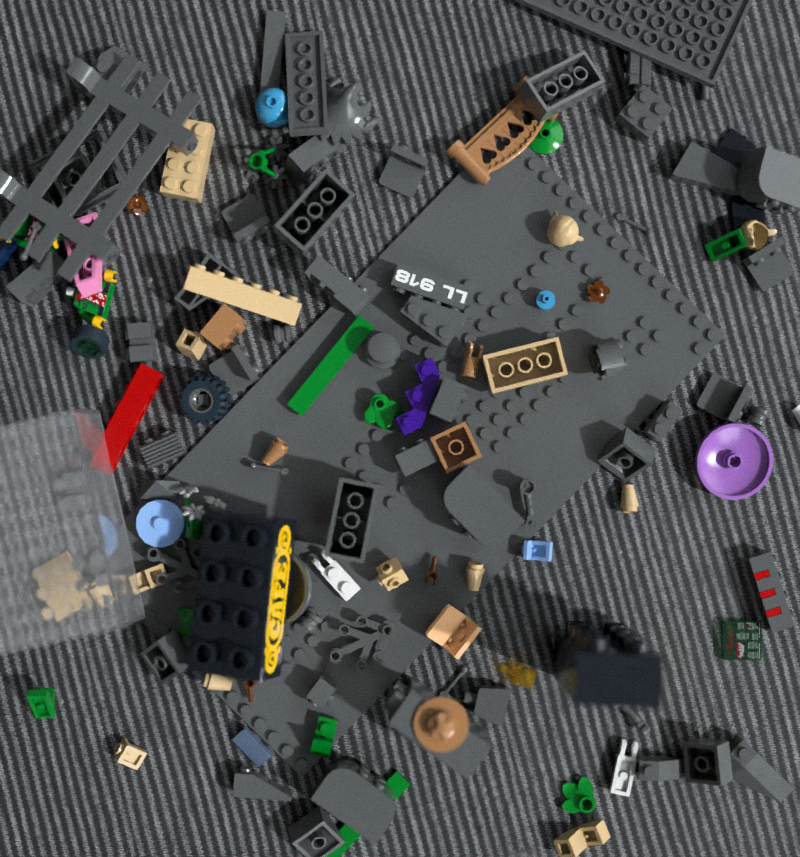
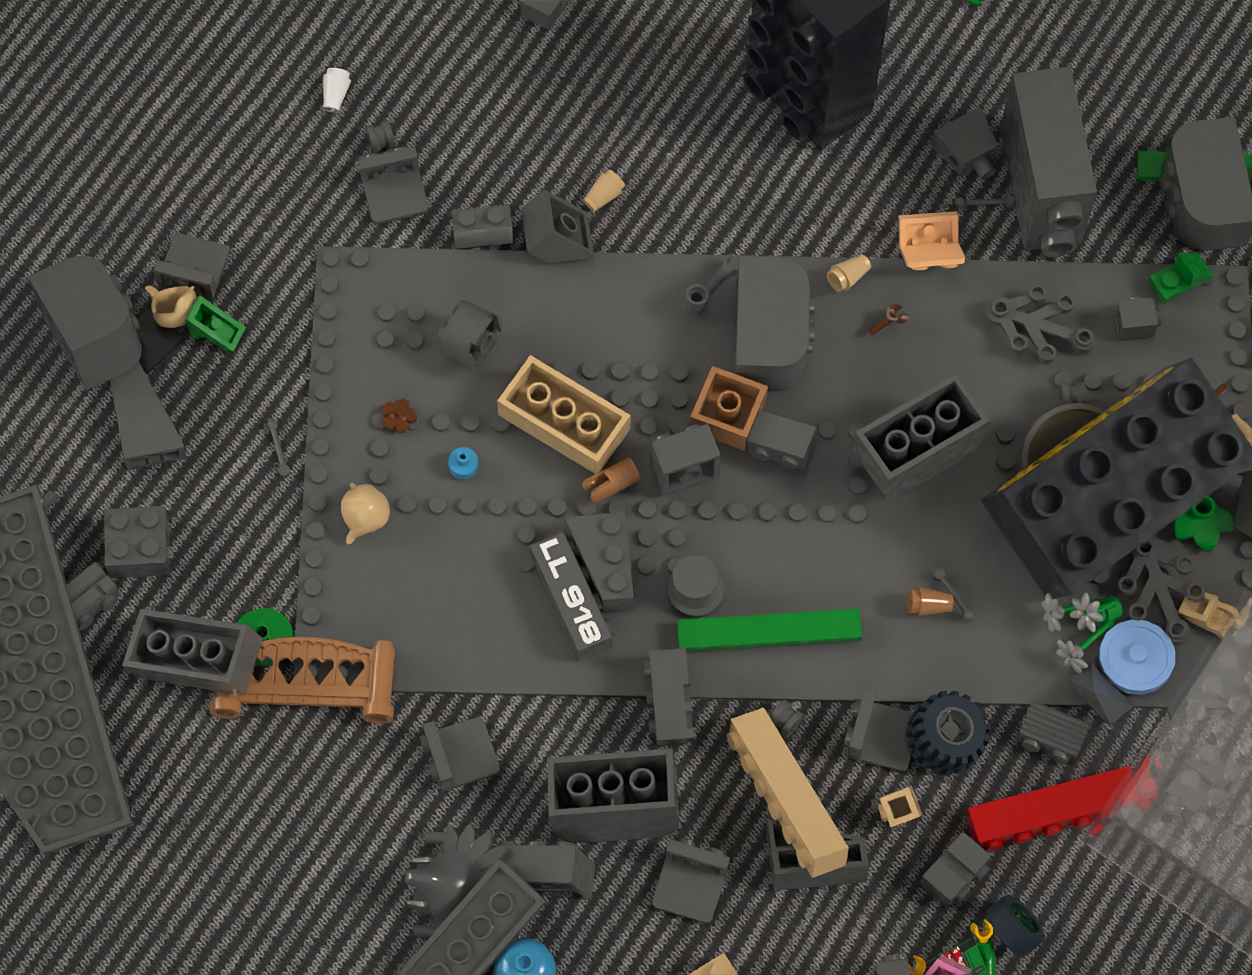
camera: 135 degrees left, 20 degrees down
(224, 328) = (847, 782): medium nougat brick -> none
(258, 163) = (611, 909): dark grey plant -> none
(337, 577) = (998, 406): white hinge -> none
(382, 414) = (767, 524): green plate -> none
(391, 574) = (936, 355): tan brick -> none
(419, 397) = (709, 496): dark purple brick -> none
(441, 724) = (1042, 140): medium nougat hat -> none
(520, 675) = (906, 140): clear yellow piece -> none
(537, 550) = (754, 234): light blue bracket -> none
(733, 147) = (87, 414): black piece -> none
(734, 461) = (456, 118): medium lavender dish -> none

